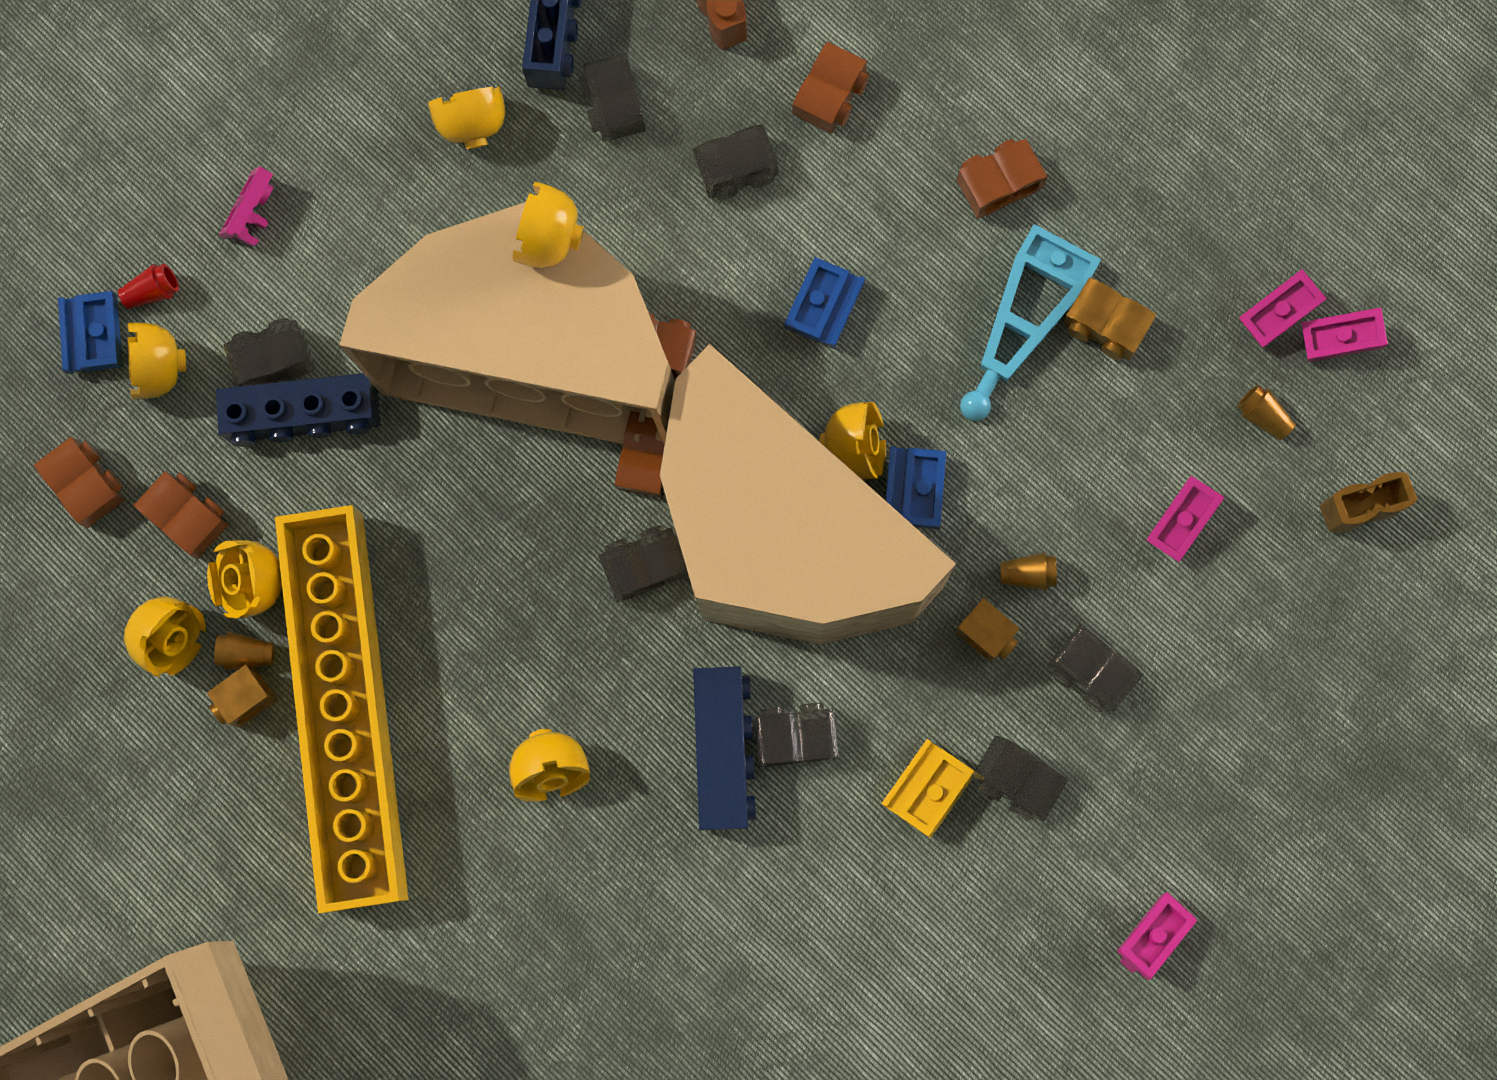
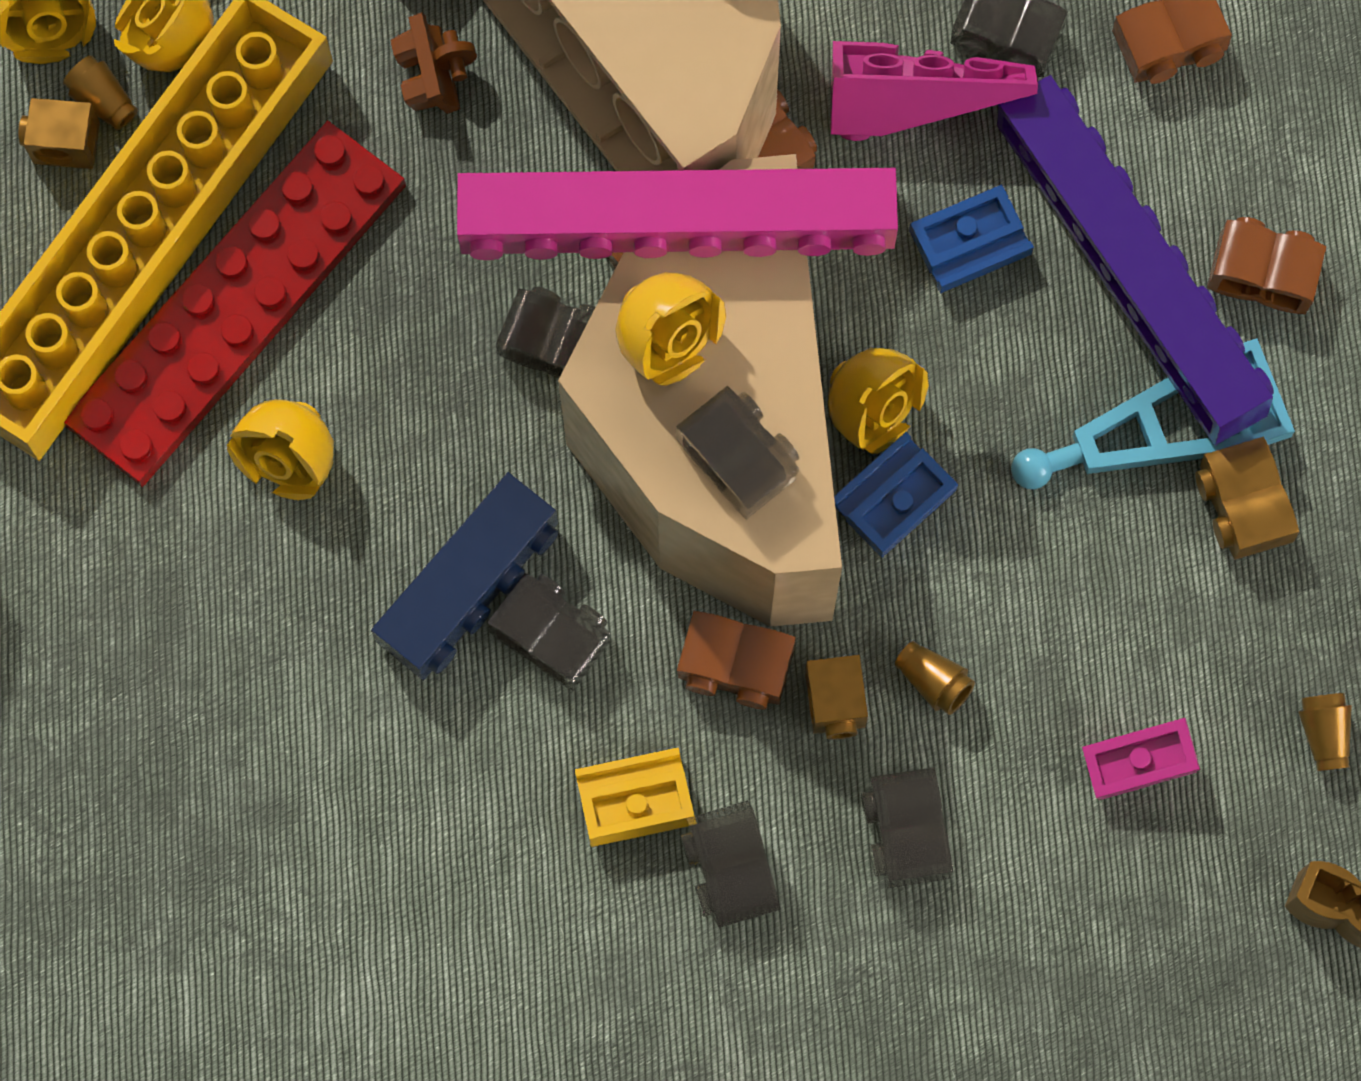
camera: 35 degrees right, 5 degrees down
(426, 461) = (440, 60): none -> dark orange hips
(437, 706) = (234, 303): none -> red plate
(677, 438) = (677, 212): none -> dark pink brick
(704, 256) = (889, 92): none -> dark pink wedge
(732, 511) = (667, 325): none -> yellow cylinder
(840, 548) = (738, 451): none -> clear smoke brick
(913, 660) = (735, 660): none -> dark orange brick
(928, 236) = (1136, 262): none -> dark purple brick

